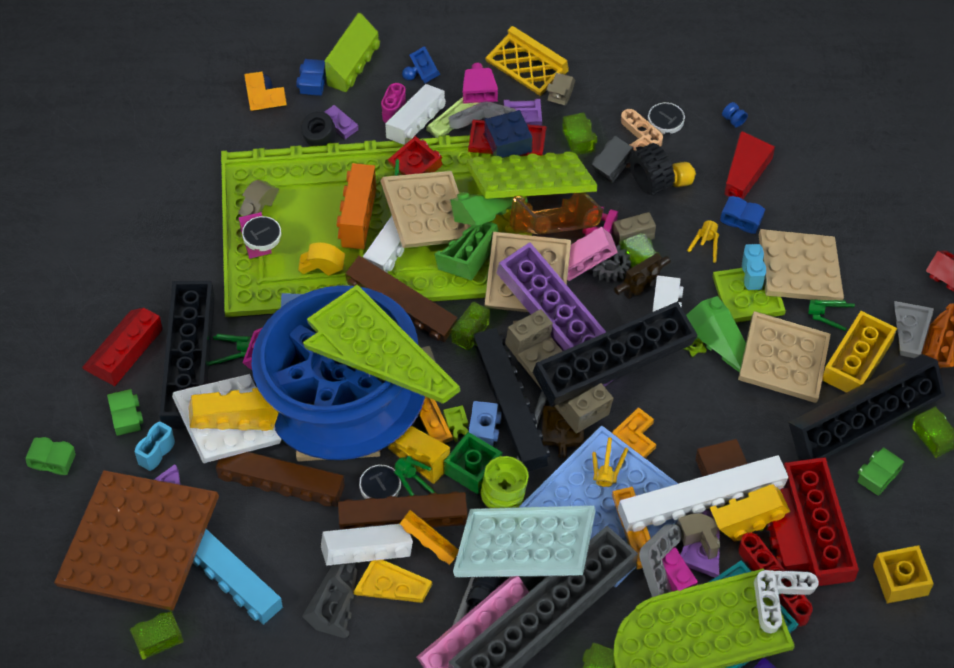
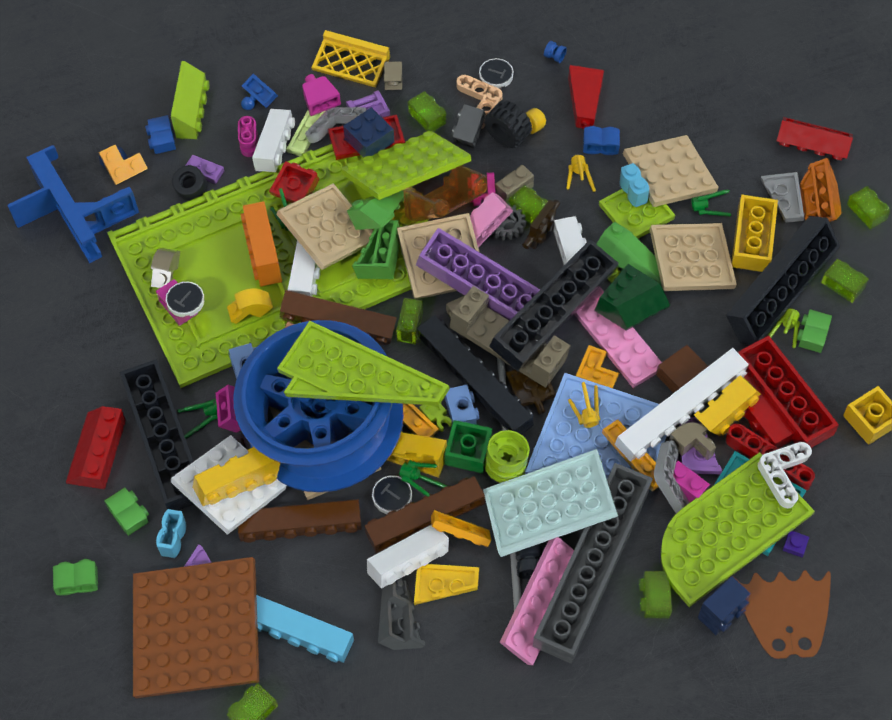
camera: 20 degrees left, 5 degrees up
(186, 103) = (55, 196): none -> blue piece
(671, 409) = (623, 347): none -> bright pink plate
(701, 376) = (631, 298): none -> dark green wedge
(858, 452) = (789, 321): none -> lime plant

